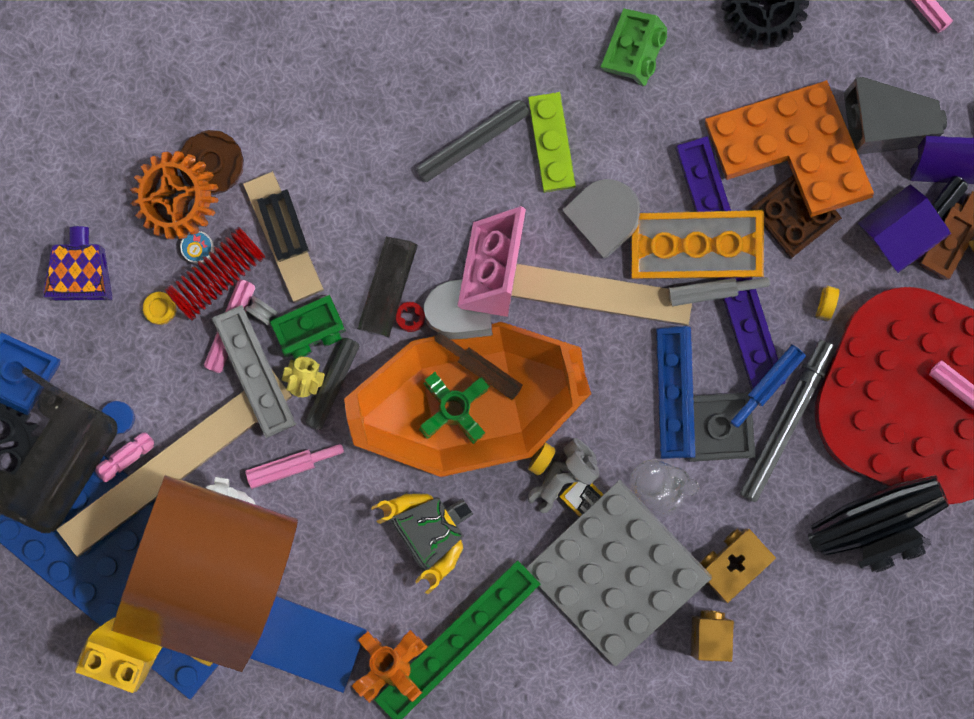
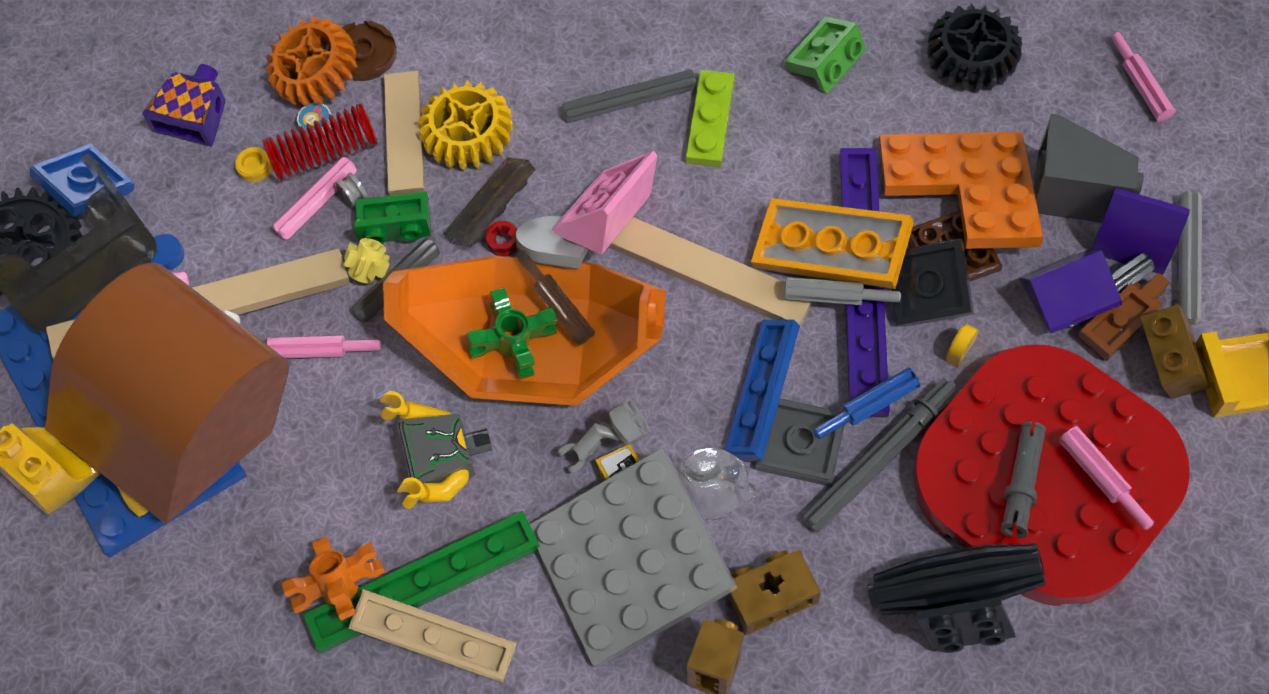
camera: 25 degrees right, 20 degrees down
(253, 371) = (318, 242): light grey tile -> none
(274, 200) = (405, 94): black tile -> none
(309, 644) = (258, 535): blue tile -> none
(347, 203) = (468, 109): none -> yellow gear
(483, 684) = (432, 636): none -> tan tile
(541, 459) = (589, 414): yellow tile -> none
(605, 214) = (743, 192): light grey tile -> none
(793, 258) = (933, 284): none -> black plate
(910, 420) = (1021, 493): none -> dark grey pin

